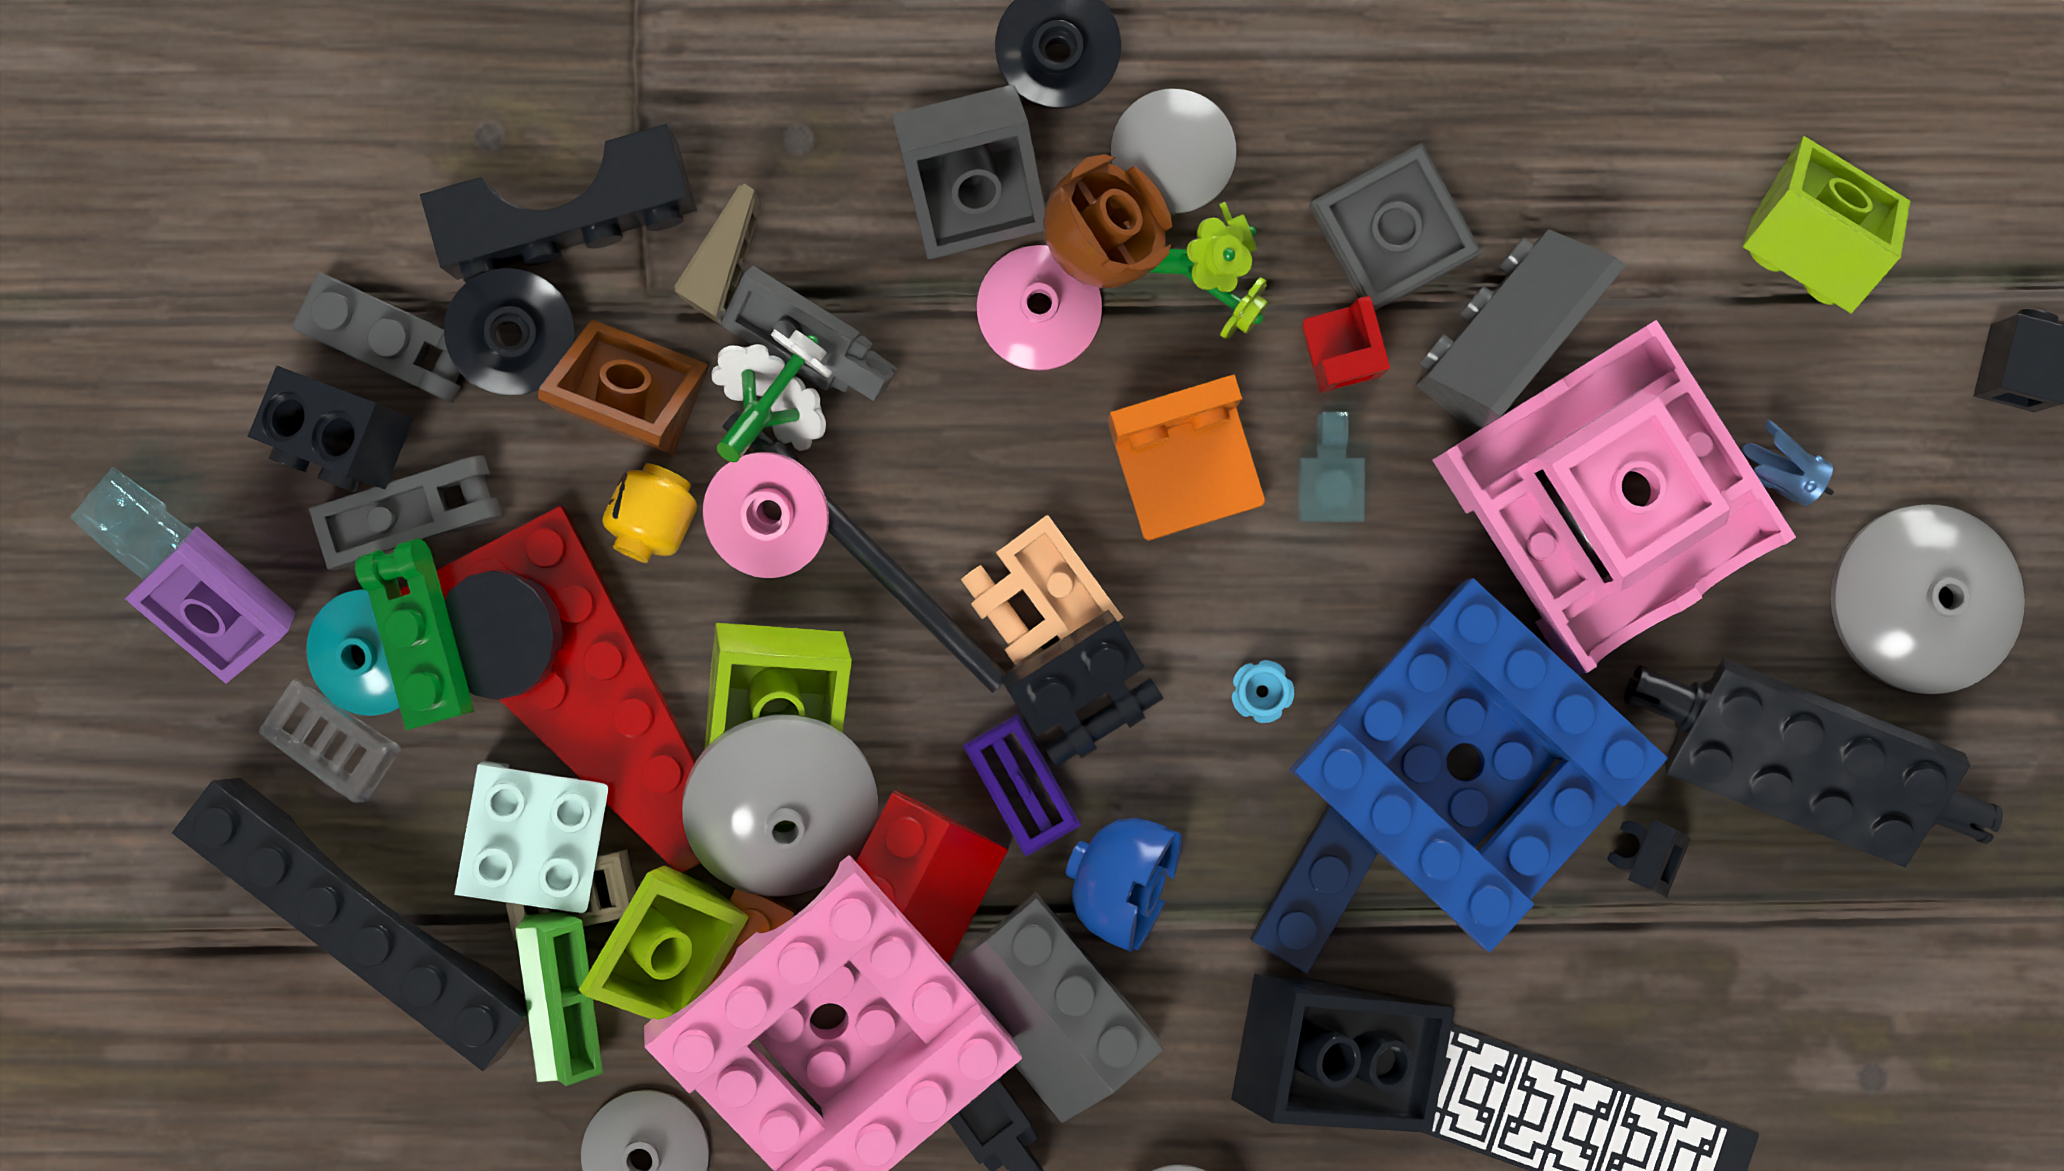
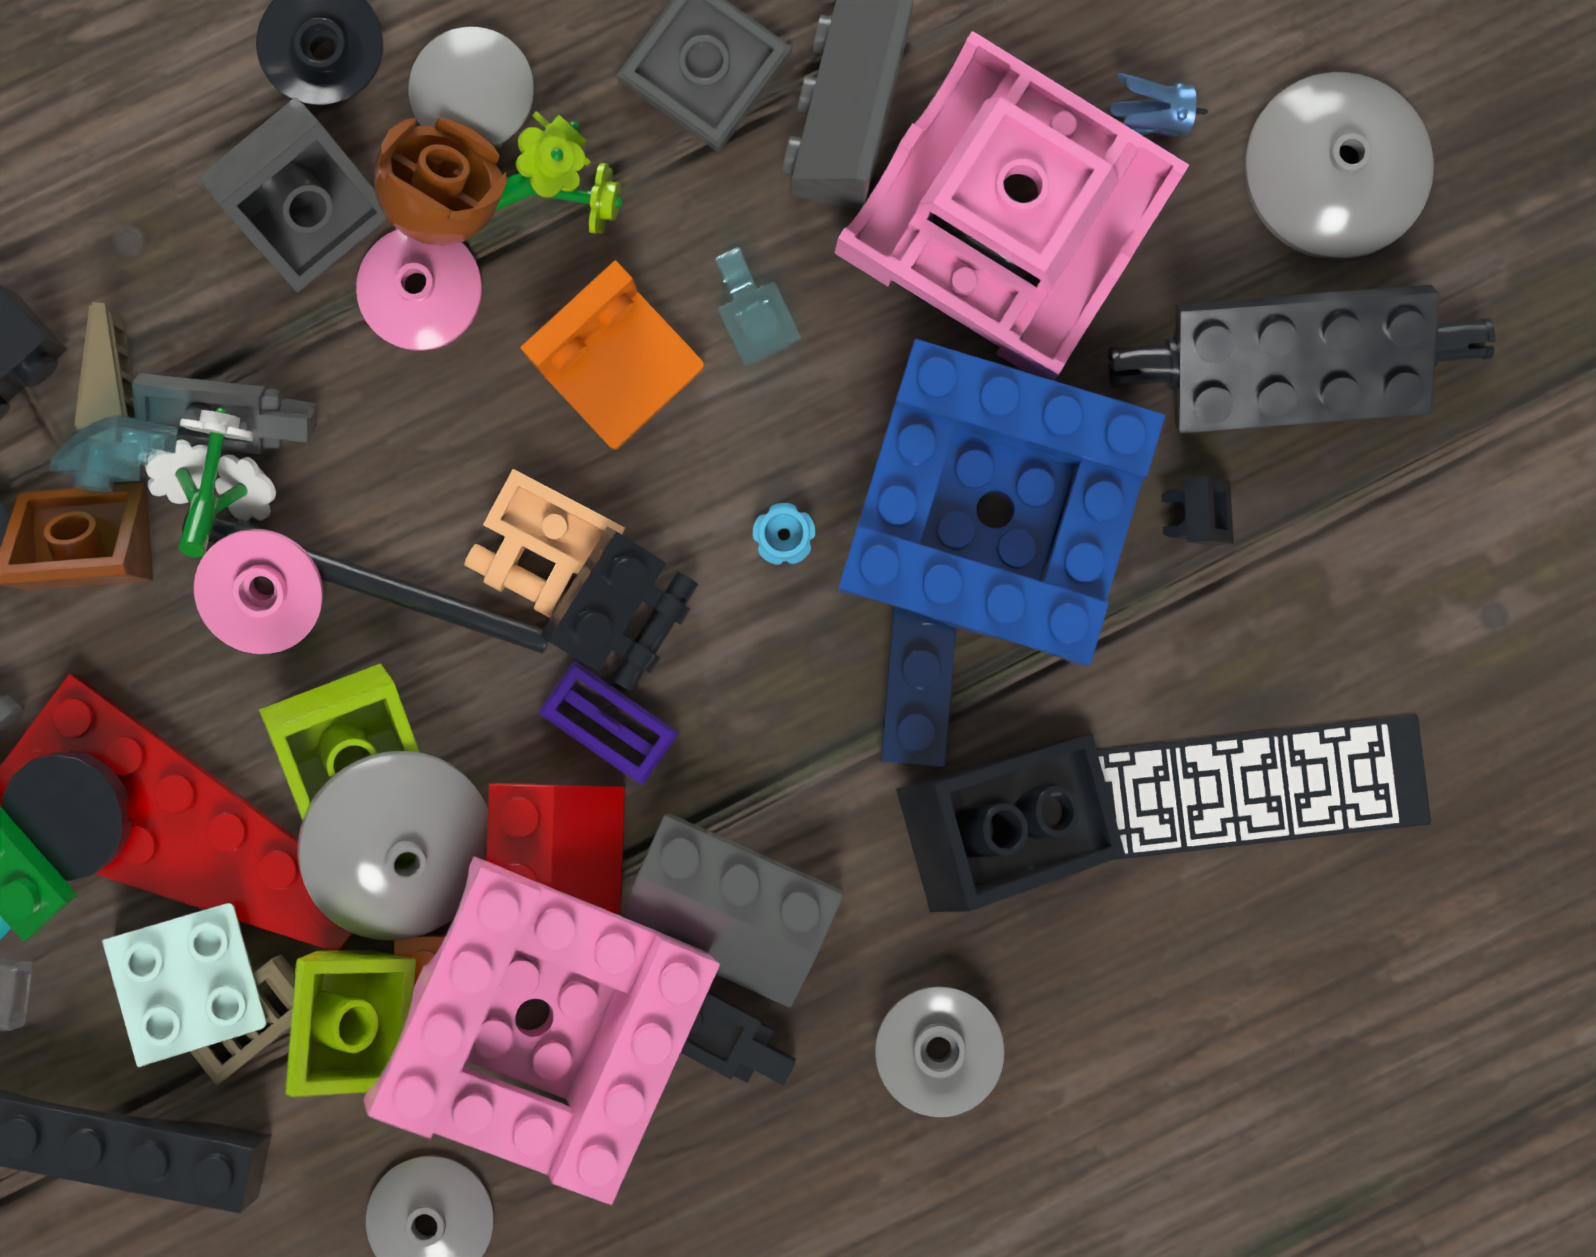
camera: 25 degrees left, 0 degrees up
(558, 1013) = (282, 1125): bright green piece -> none
(649, 512) = (153, 640): yellow head -> none
(697, 327) = (112, 451): none -> clear light blue slope
(1123, 879) = (736, 761): blue cylinder -> none
(1346, 346) = (710, 190): red panel -> none

